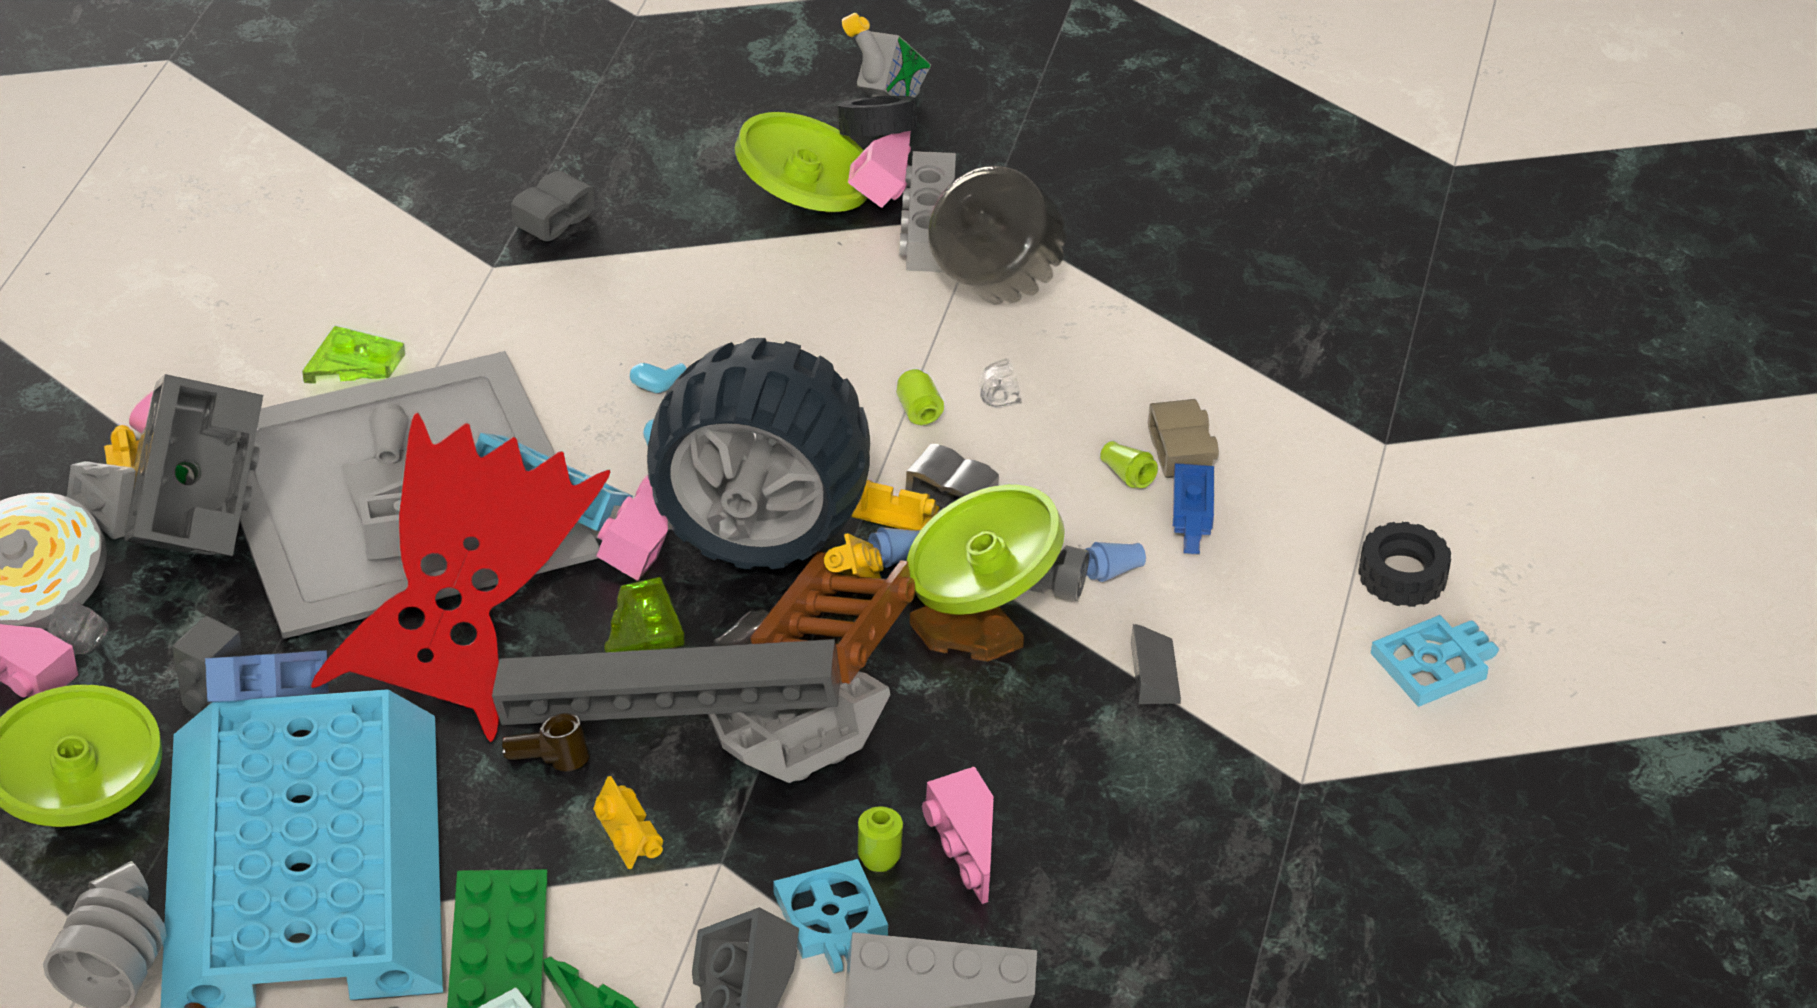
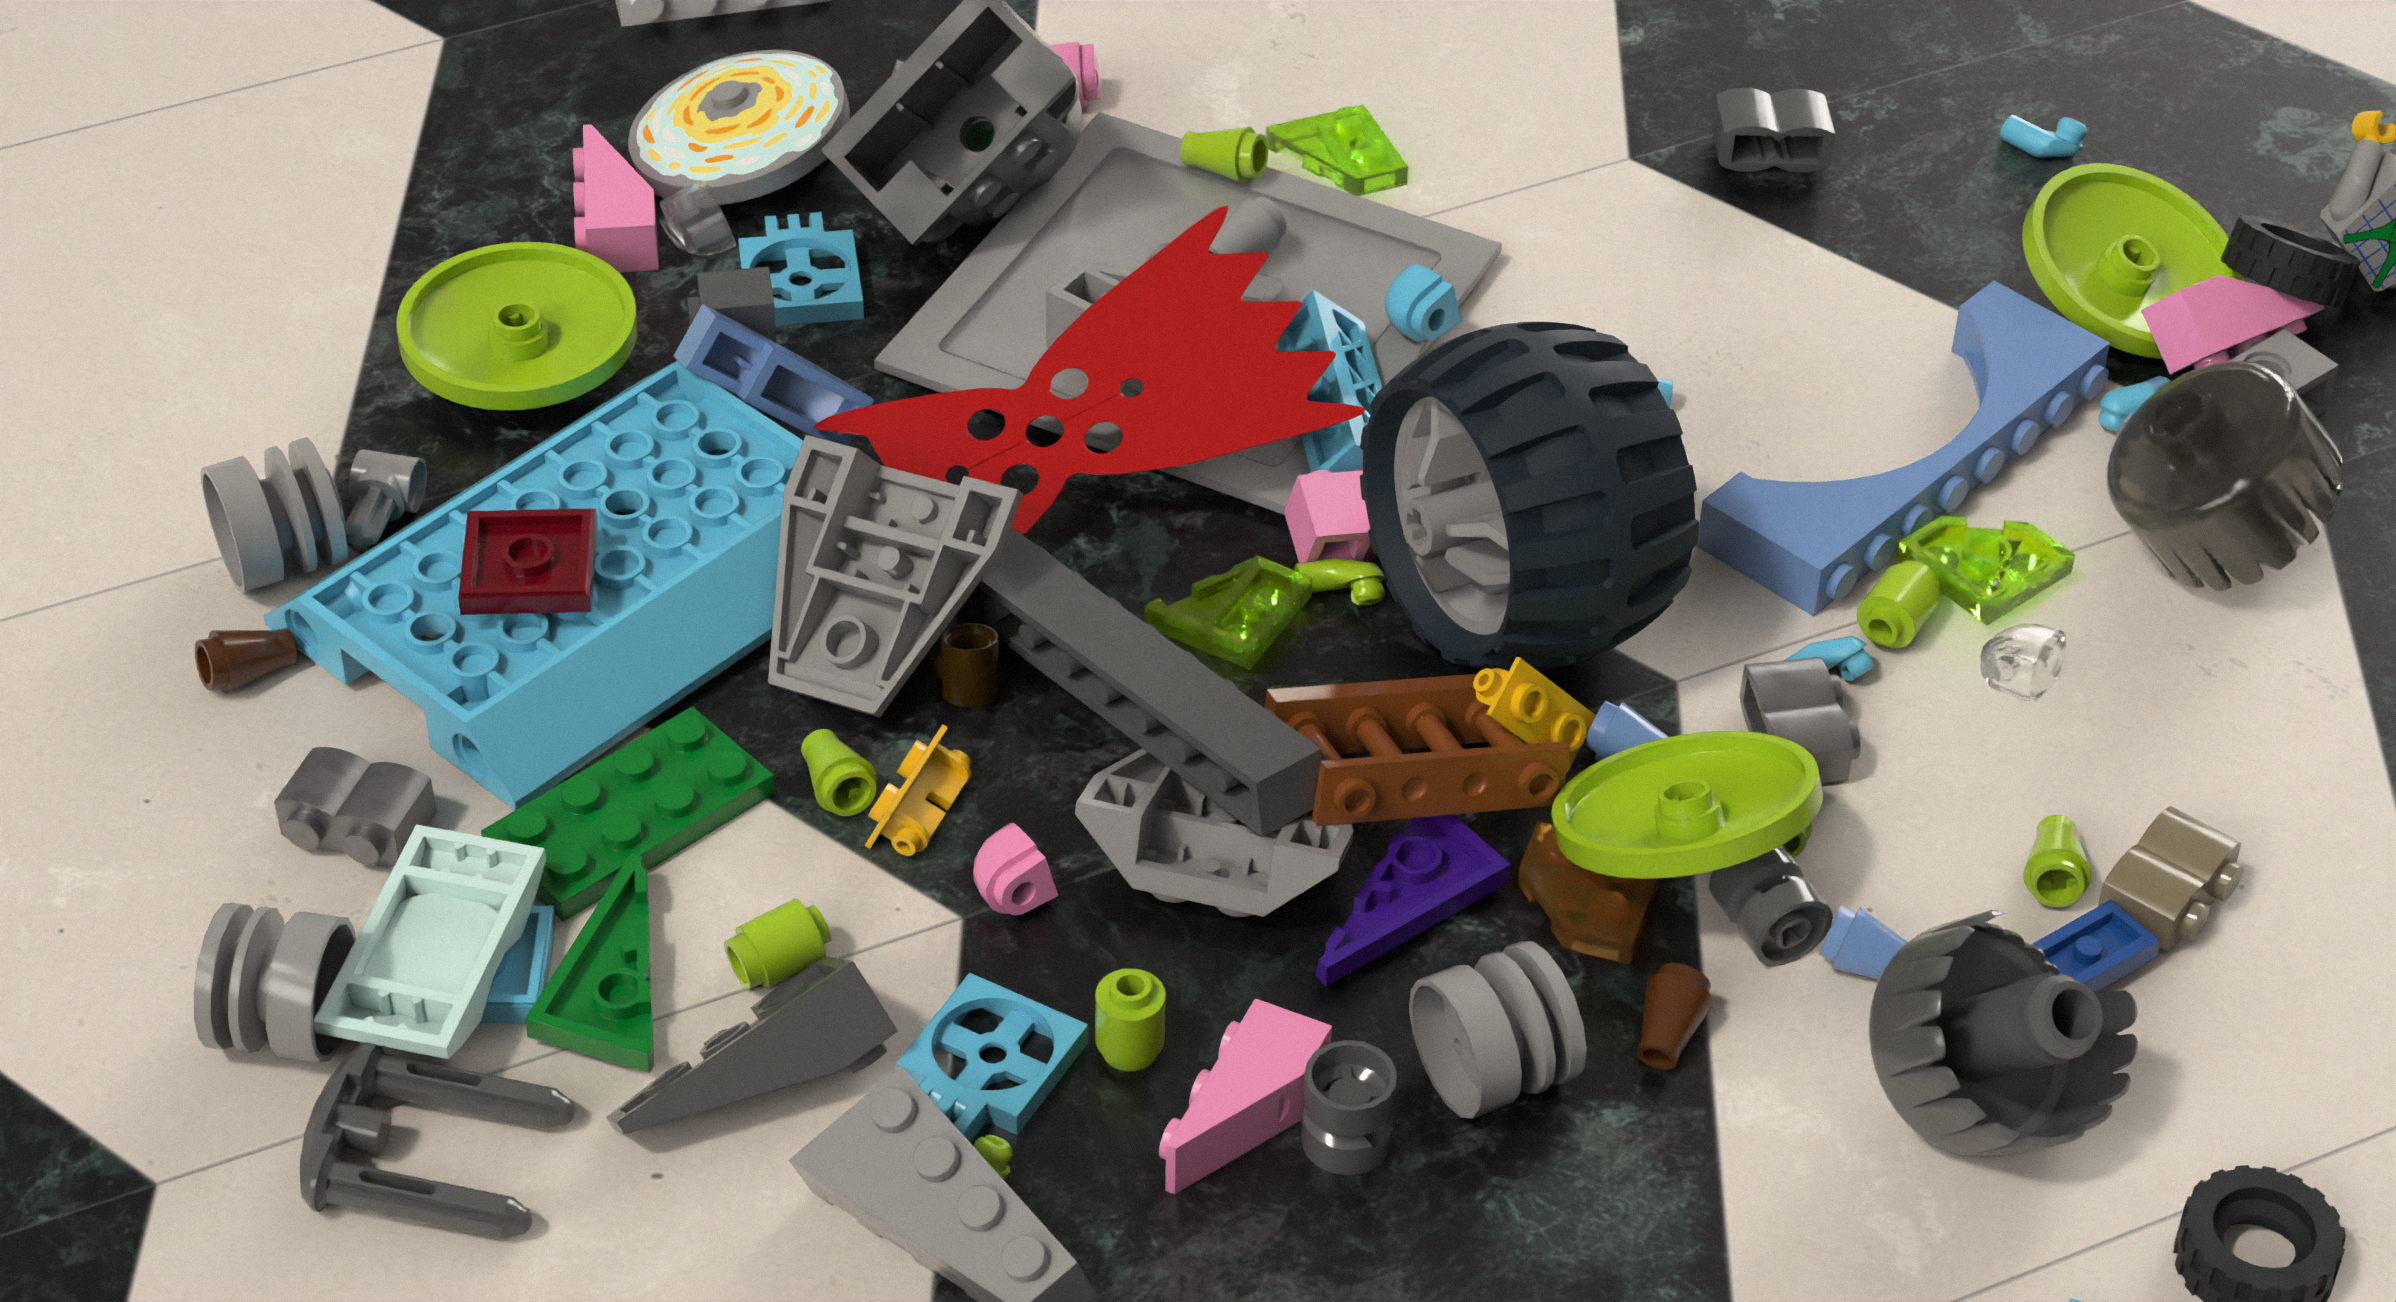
camera: 50 degrees right, 0 degrees up
(140, 602) = (797, 247): none -> medium azure piece
(310, 856) = (528, 561): none -> dark red plate
(315, 396) = (1227, 152): none -> lime cone
(476, 727) = (873, 571): none -> light grey wedge
(524, 405) = (1421, 304): none -> medium azure piece
(577, 843) = (839, 775): none -> lime cone
(662, 566) = (1341, 573): none -> lime arm
(671, 943) = (777, 944): none -> lime brick
(675, 131) = (2044, 143): none -> medium azure arm
(725, 818) = (1012, 872): none -> bright pink piece
(827, 251) = (1827, 535): none -> medium blue arch
(884, 232) = (2123, 401): none -> medium azure arm
(904, 512) = (1683, 692): yellow hinge -> none
(905, 669) = (1422, 881): none -> dark purple wing
(920, 442) = (1843, 652): none -> medium azure arm
(929, 347) = (1986, 567): none -> clear neon green plate
(1022, 797) = (1348, 1107): none -> dark grey wheel
(1040, 711) = (1497, 1029): none -> light grey wheel
(1079, 651) = (1672, 1012): none -> reddish brown cone
(1154, 667) = (1743, 1103): dark grey slope -> none
(1241, 557) = (1994, 1044): none -> dark grey piece

